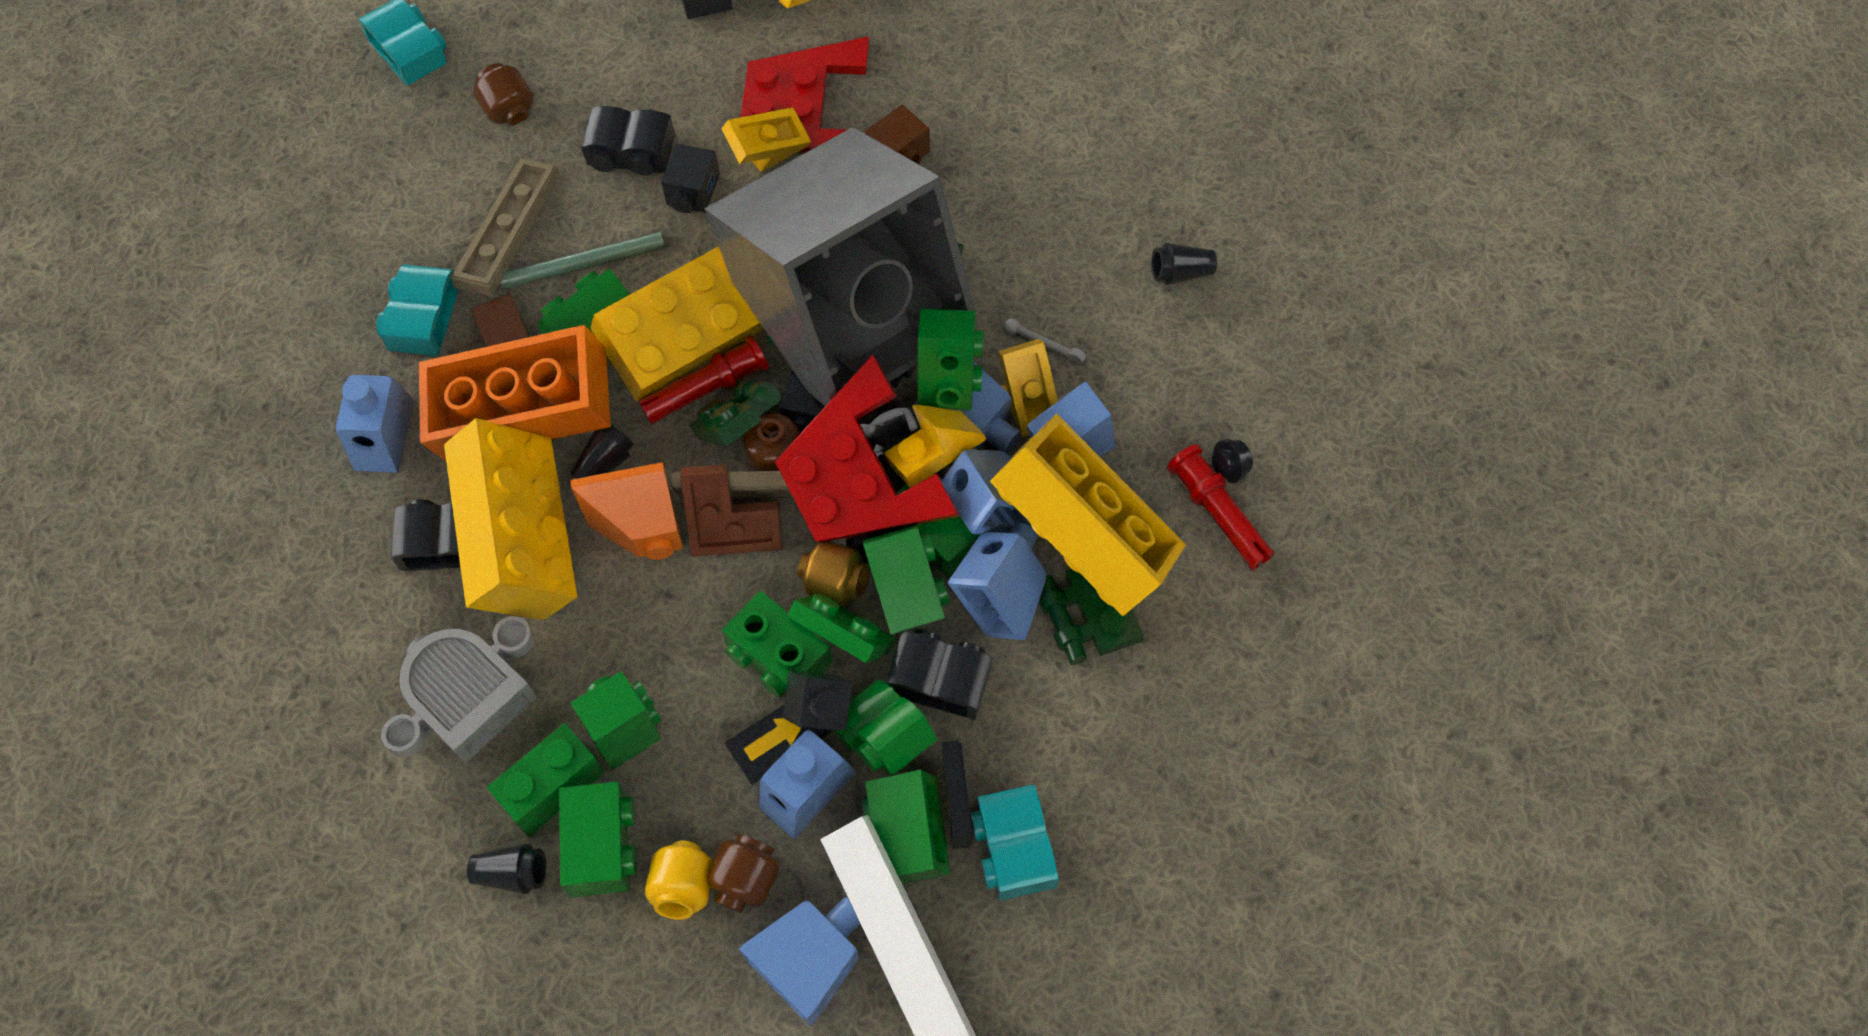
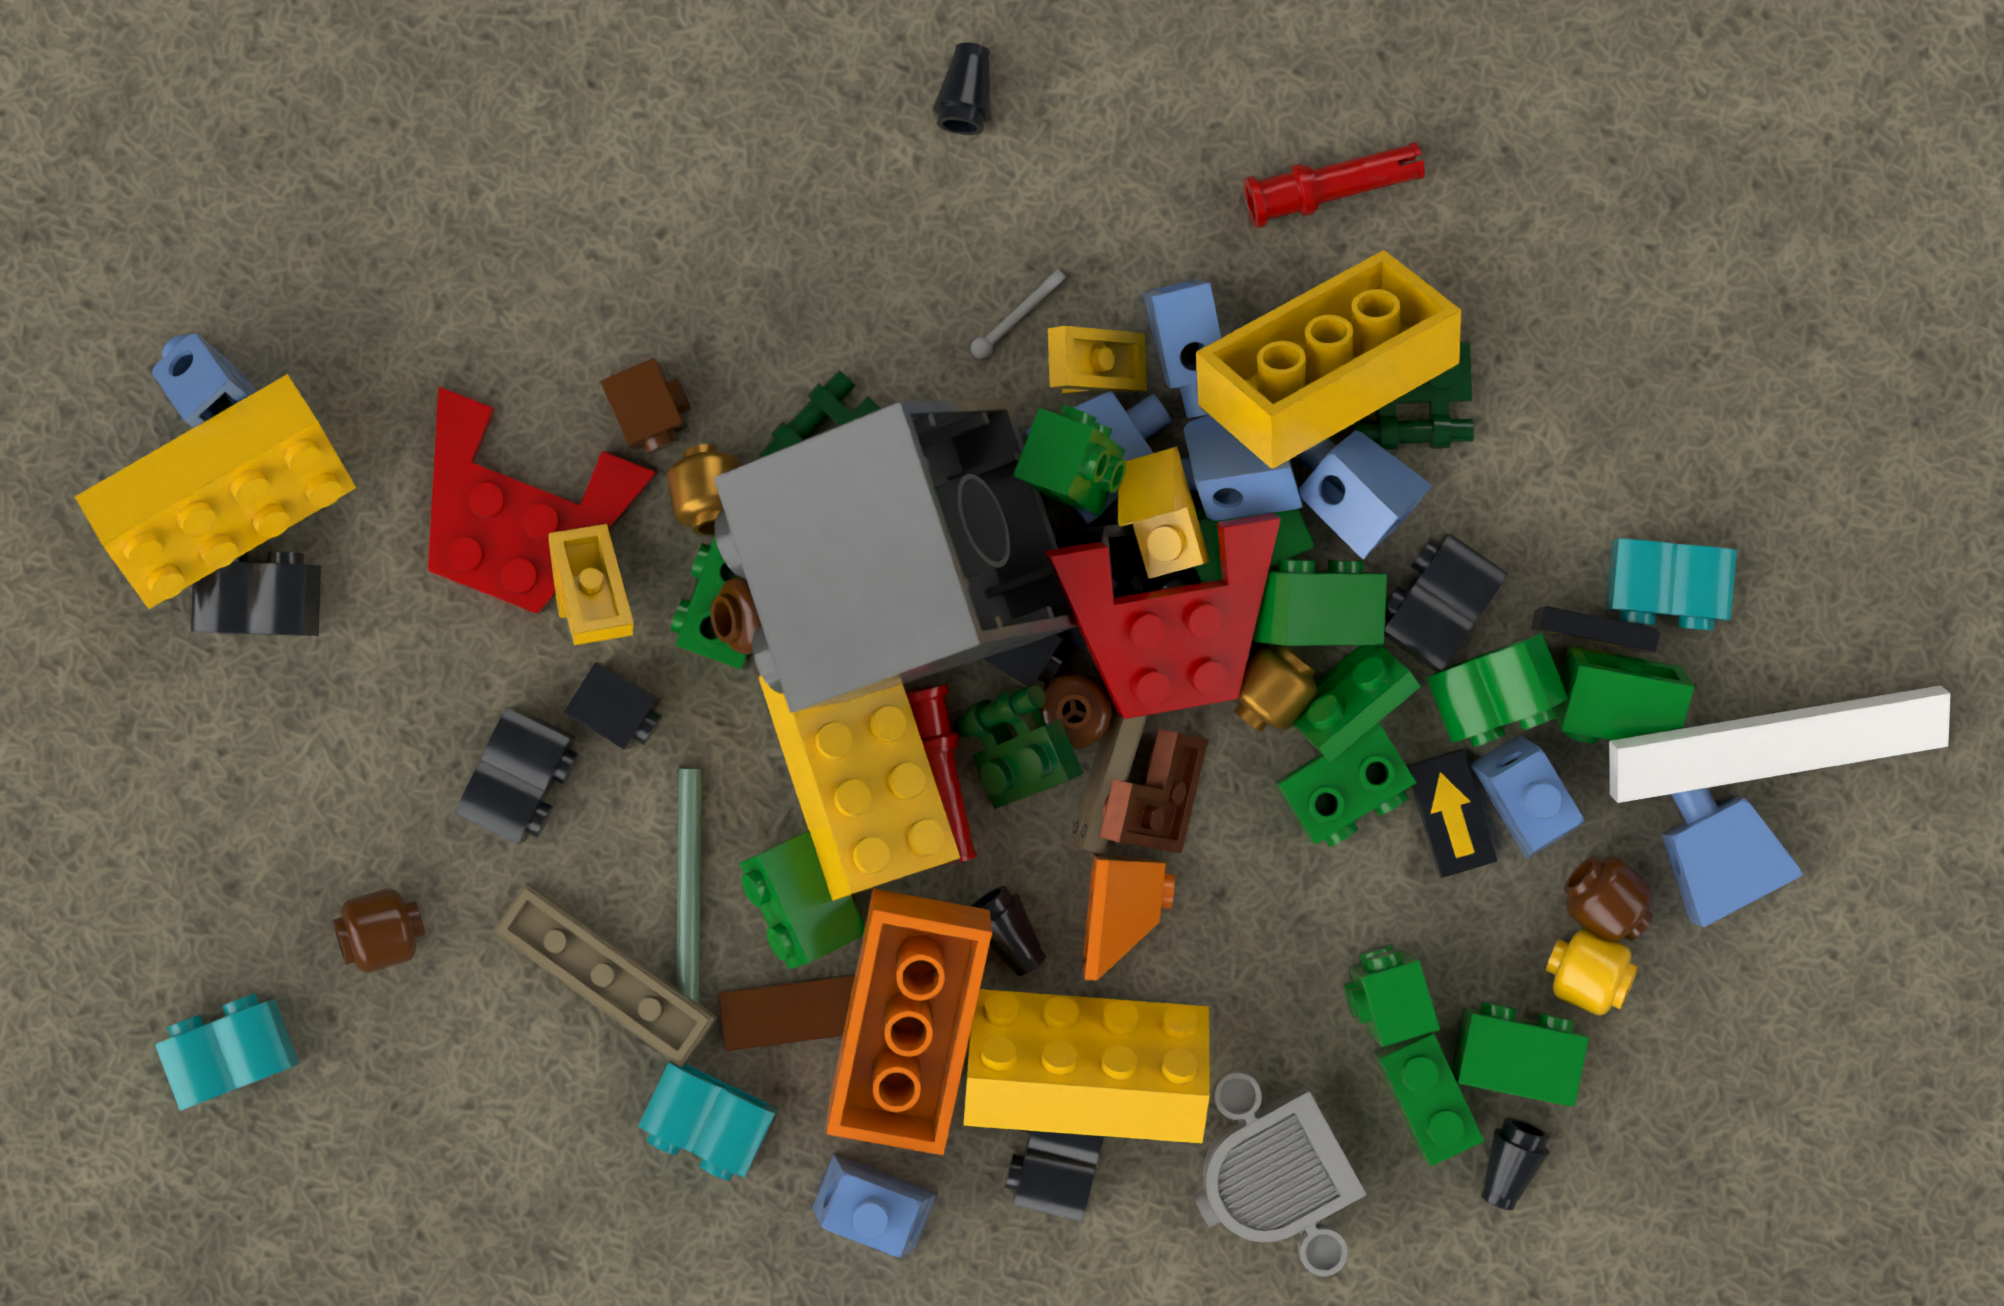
camera: 70 degrees left, 25 degrees up
(817, 700) = (1450, 757): black brick -> none
(1232, 459) = (1275, 143): black plate -> none

